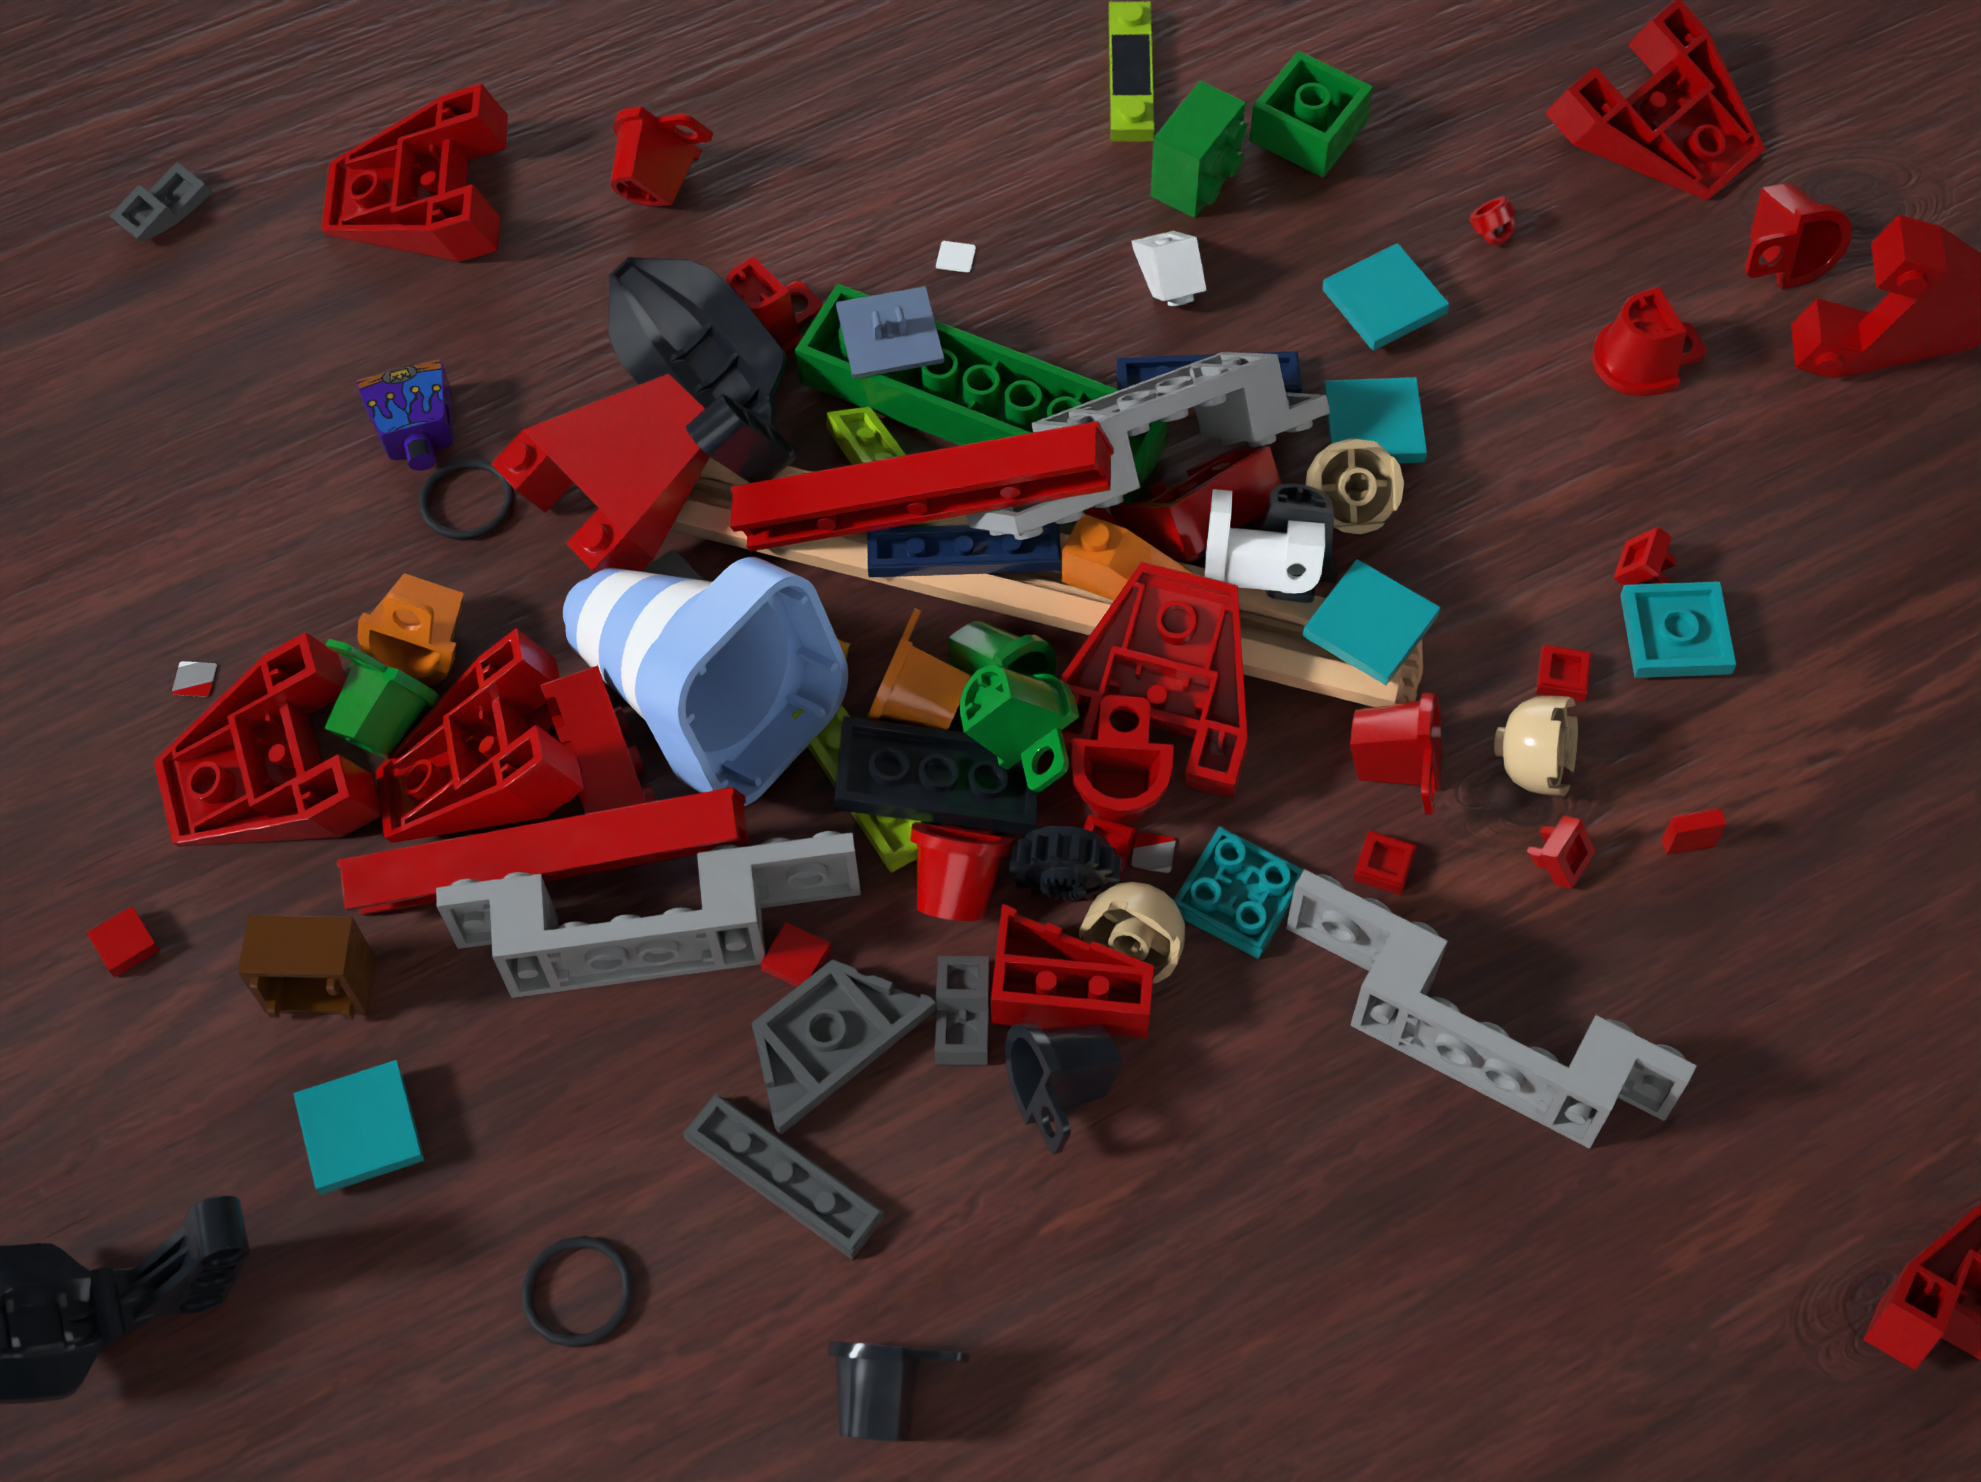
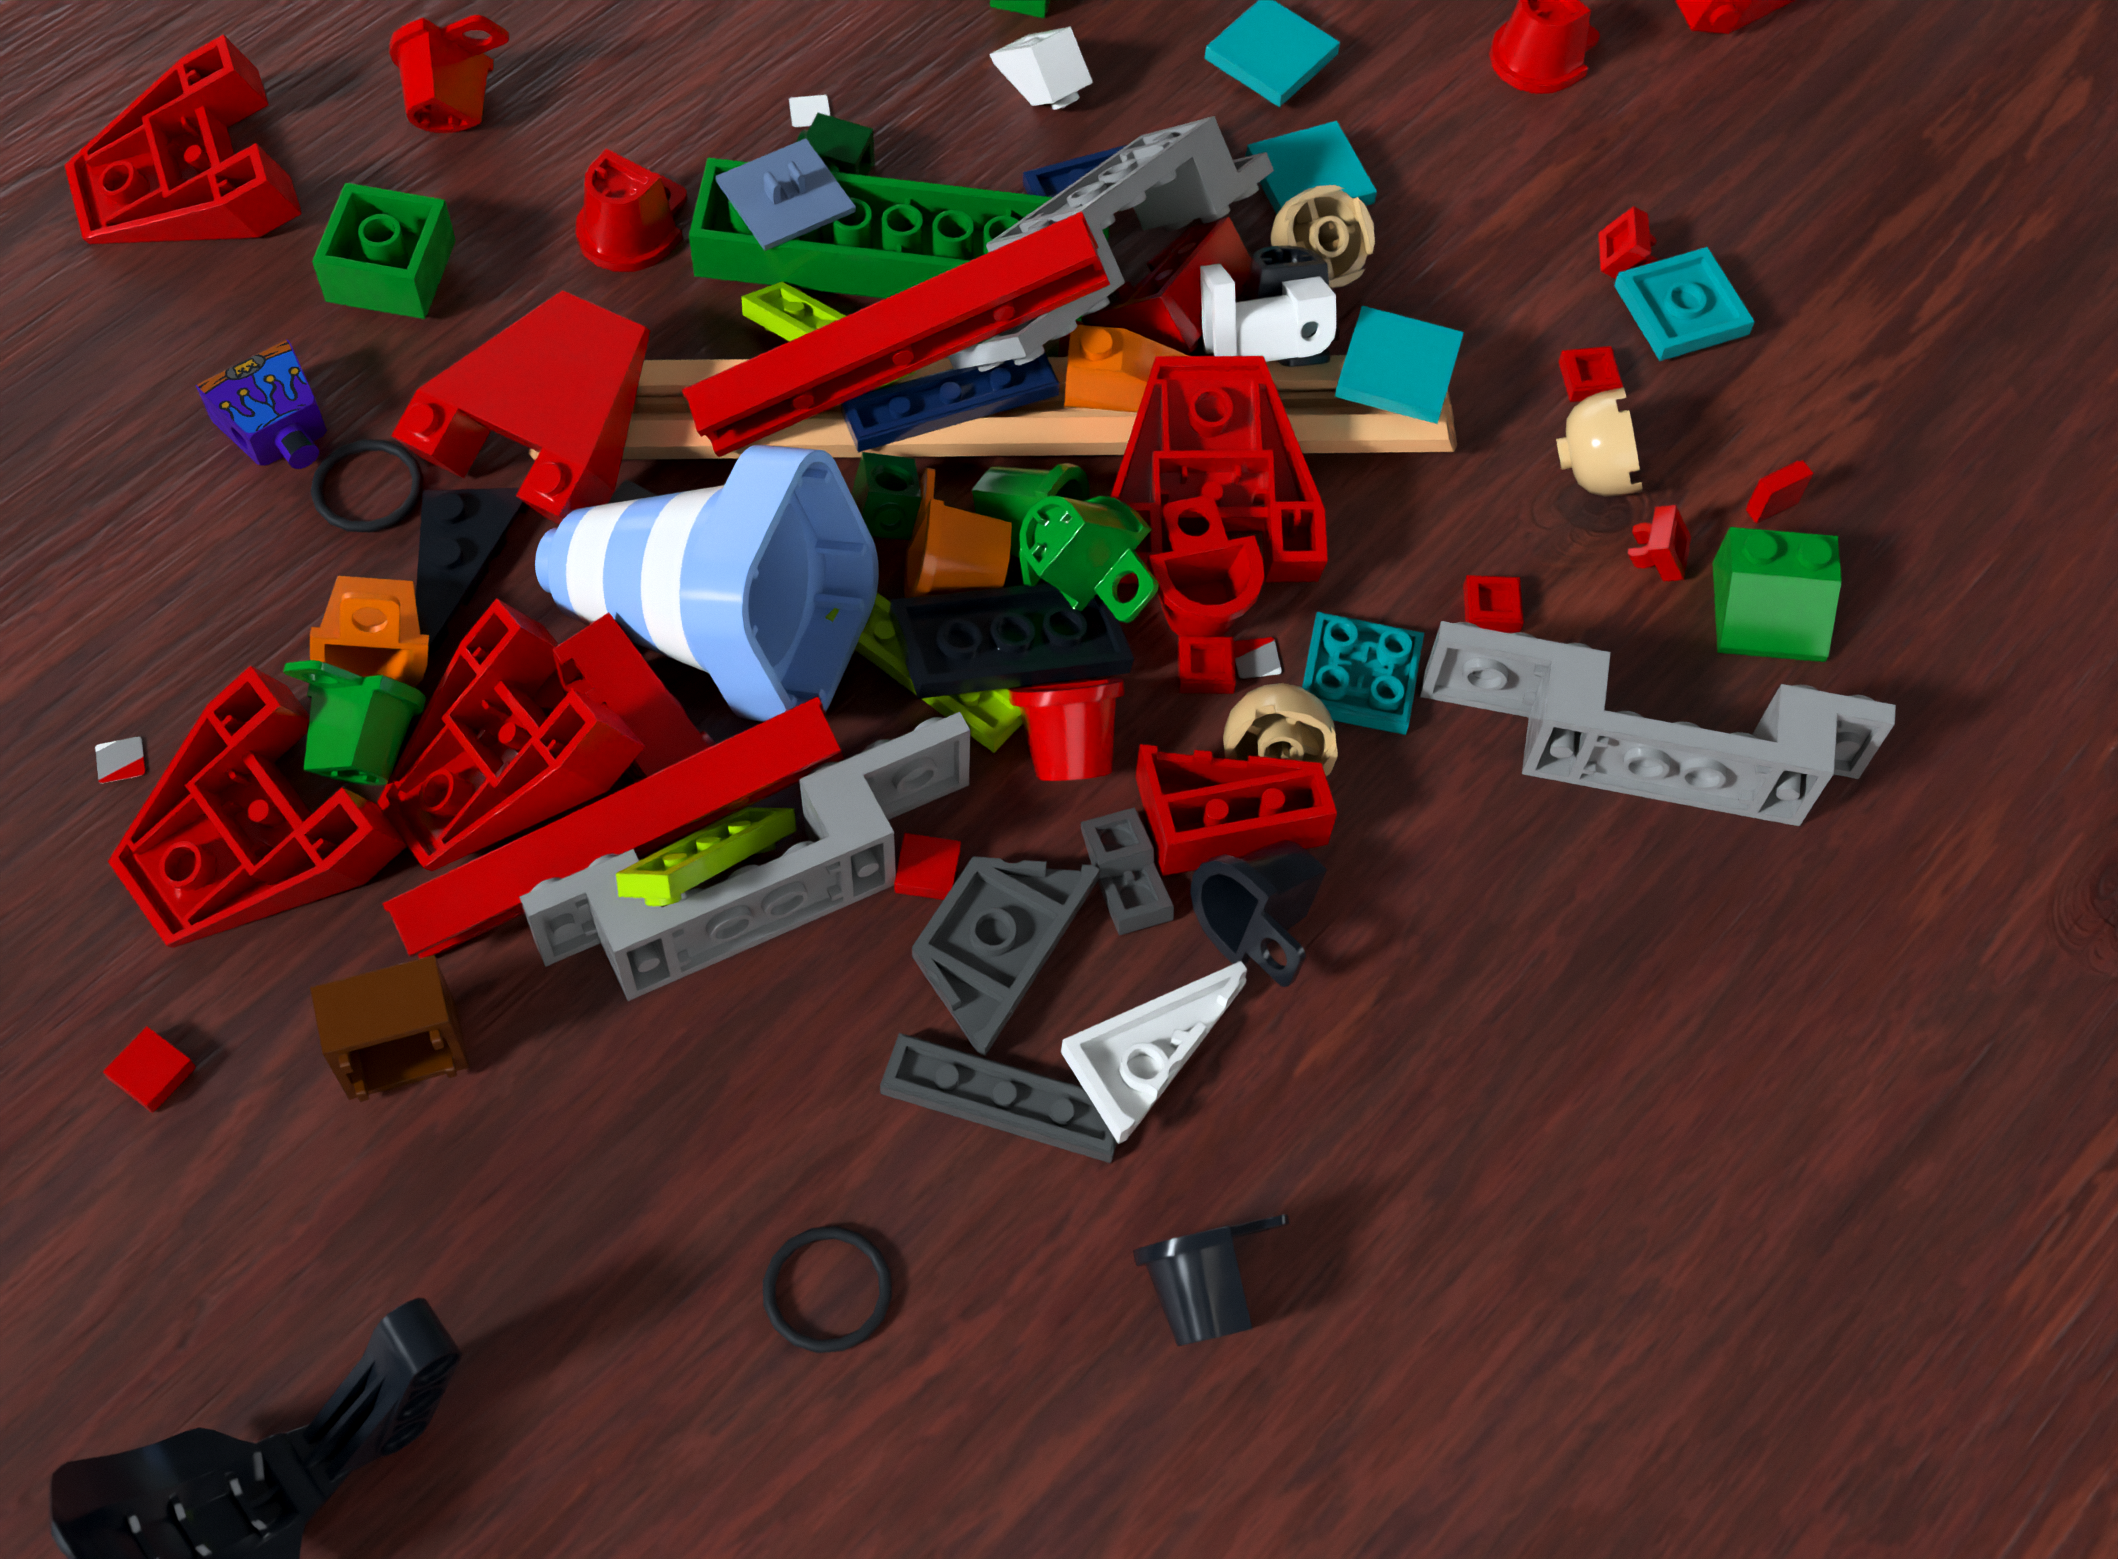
camera: 25 degrees left, 0 degrees up
(358, 1127) = (512, 1188): teal tile -> none
(518, 568) = (457, 542): none -> black wing
(547, 300) = (384, 250): none -> green brick
(601, 894) = (704, 854): none -> lime plate
(703, 334) = (561, 230): black piece -> none
(879, 622) = (887, 494): none -> dark green brick
(906, 1172) = (1138, 1053): none -> white wing
(960, 300) = (841, 144): none -> dark green brick
(1064, 863) = (1184, 687): black gear -> none
(1401, 745) = (1470, 481): red container -> none
(1650, 928) = (1776, 593): none -> green slope

